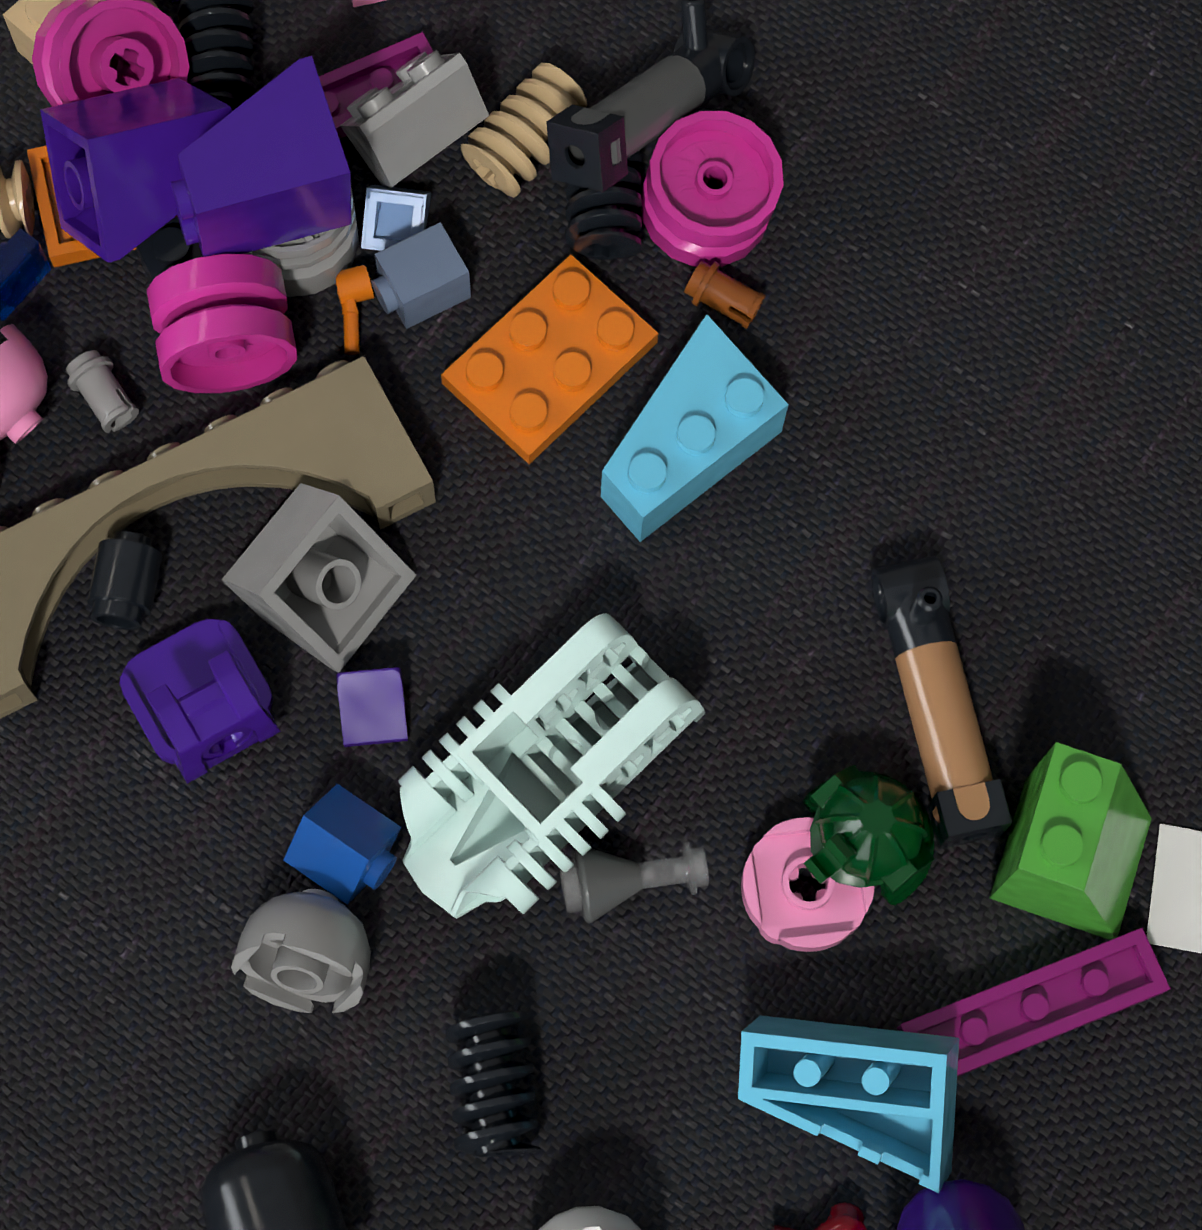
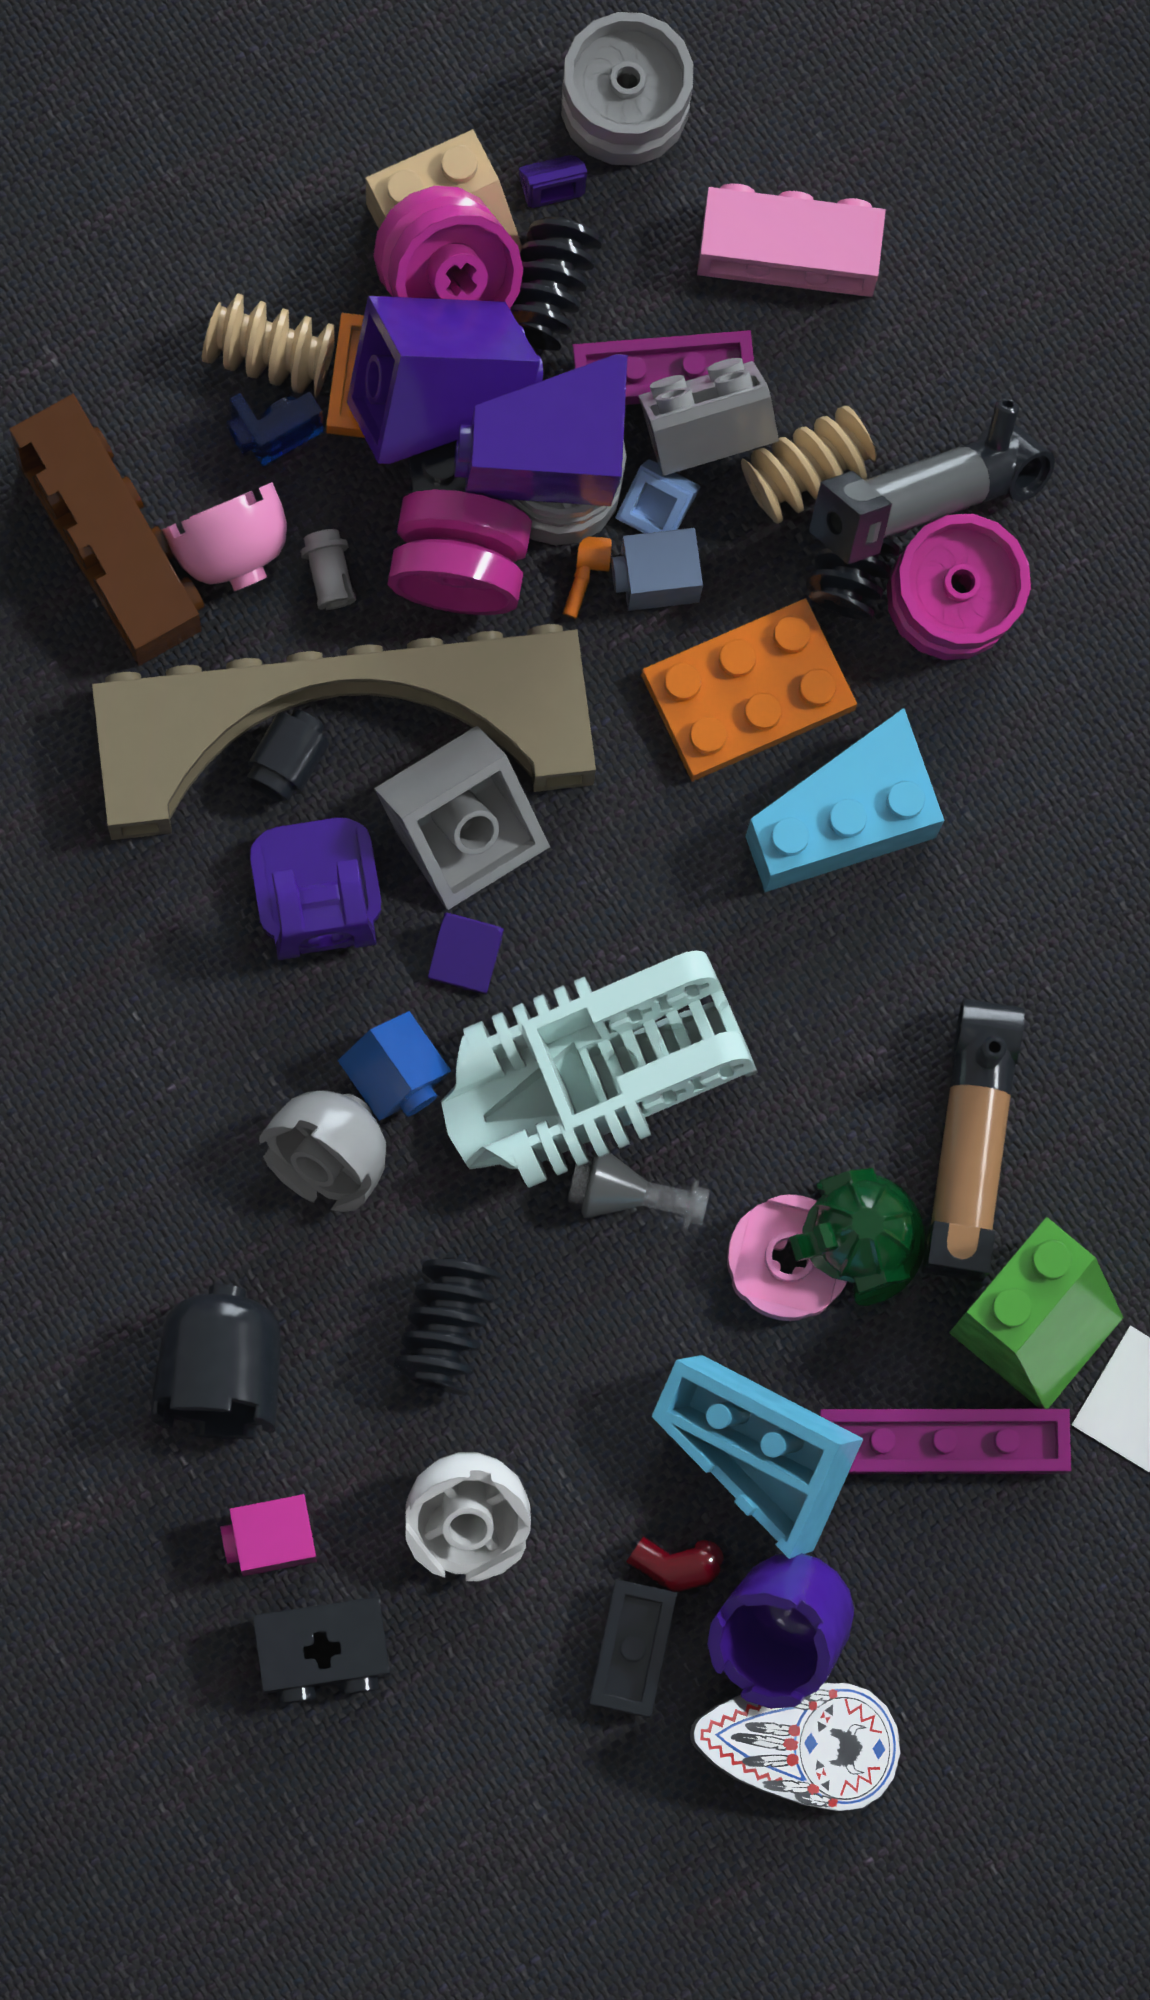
camera: 15 degrees right, 5 degrees up
(724, 294) = (933, 689): dark orange pin -> none

